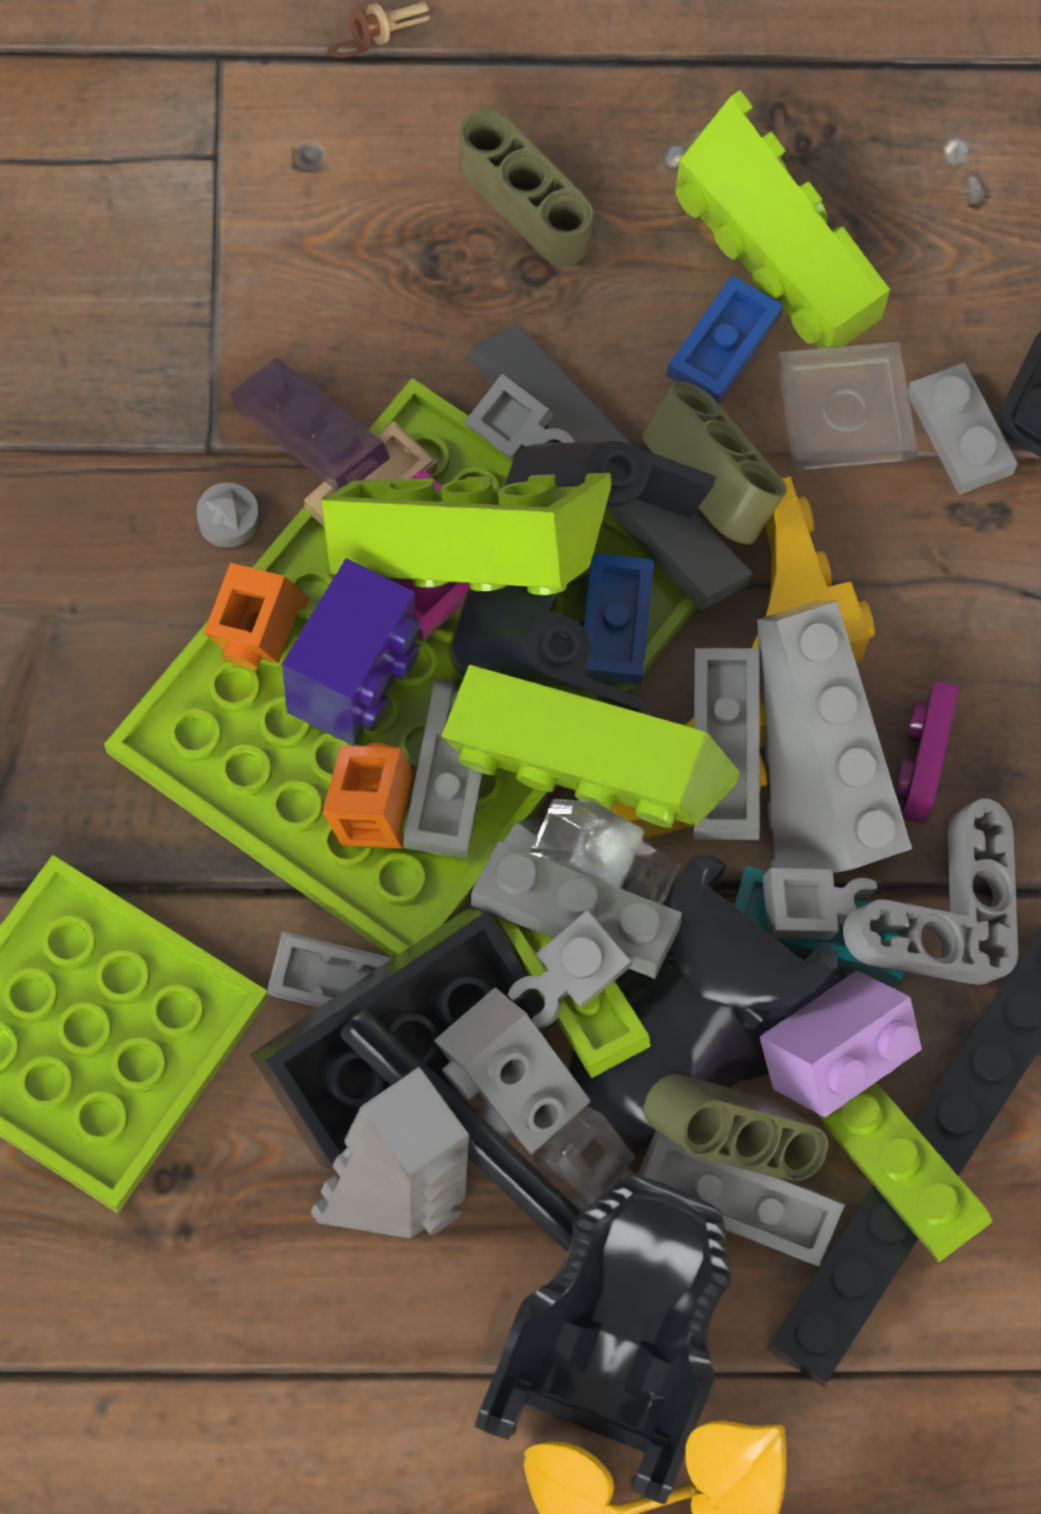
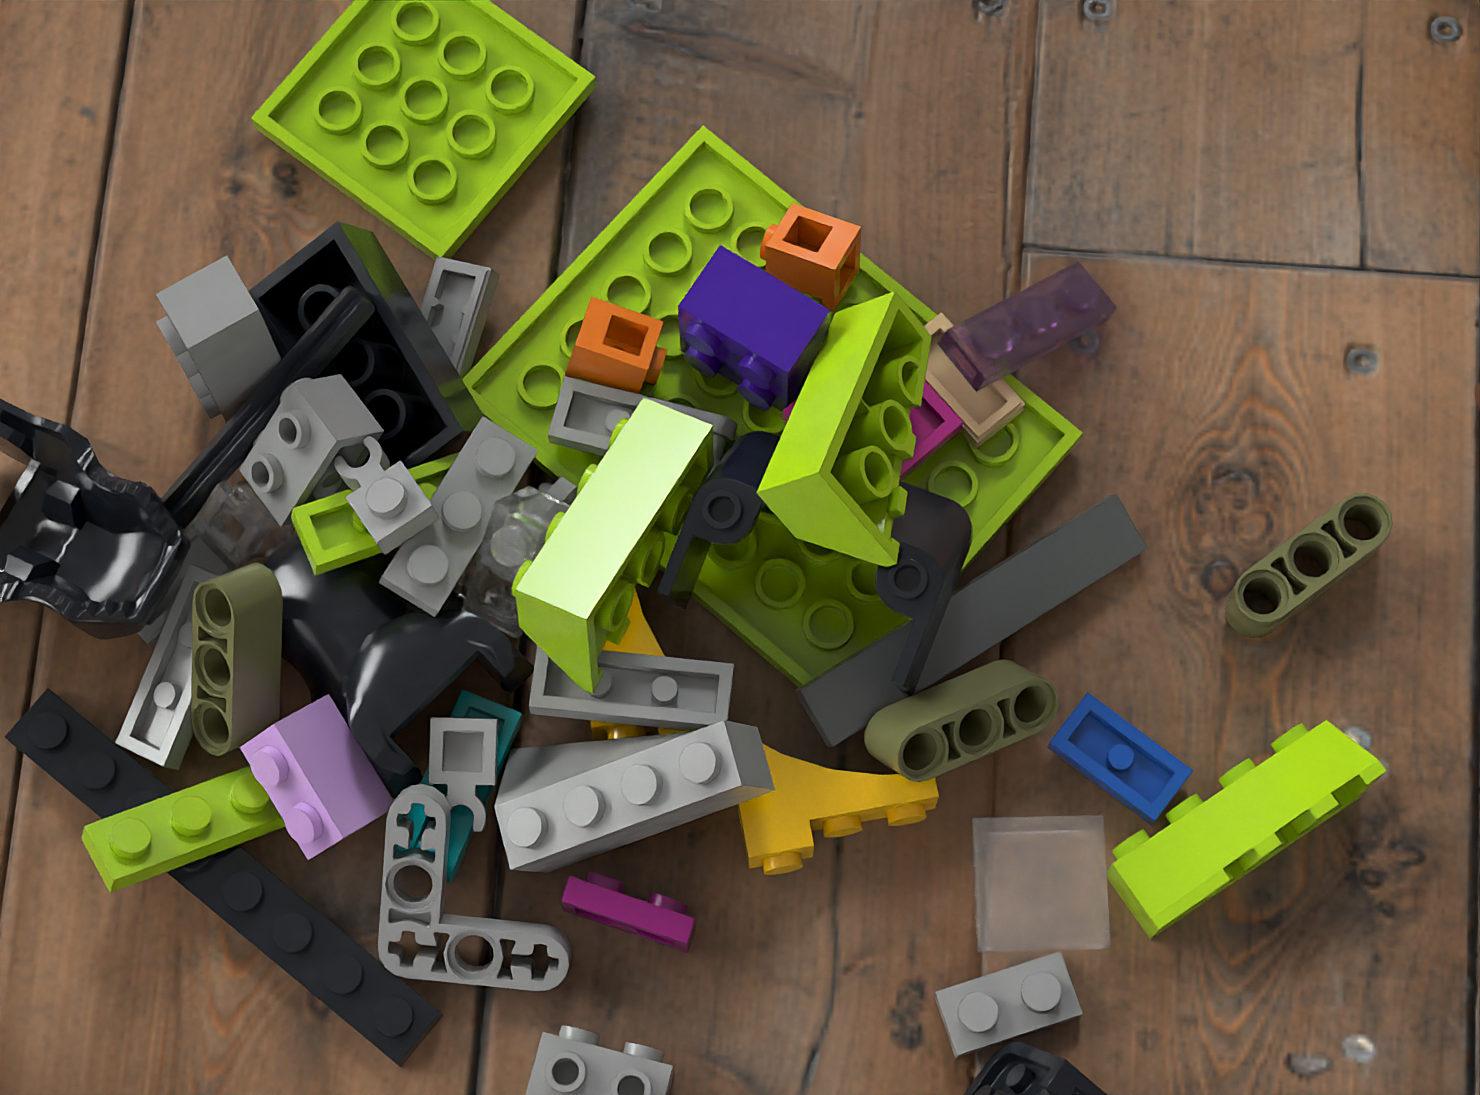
camera: 100 degrees right, 5 degrees up
(227, 515) = (946, 255): light grey tile -> none
(513, 419) = (1015, 522): light grey plate -> none
(618, 617) = (788, 602): blue plate -> none

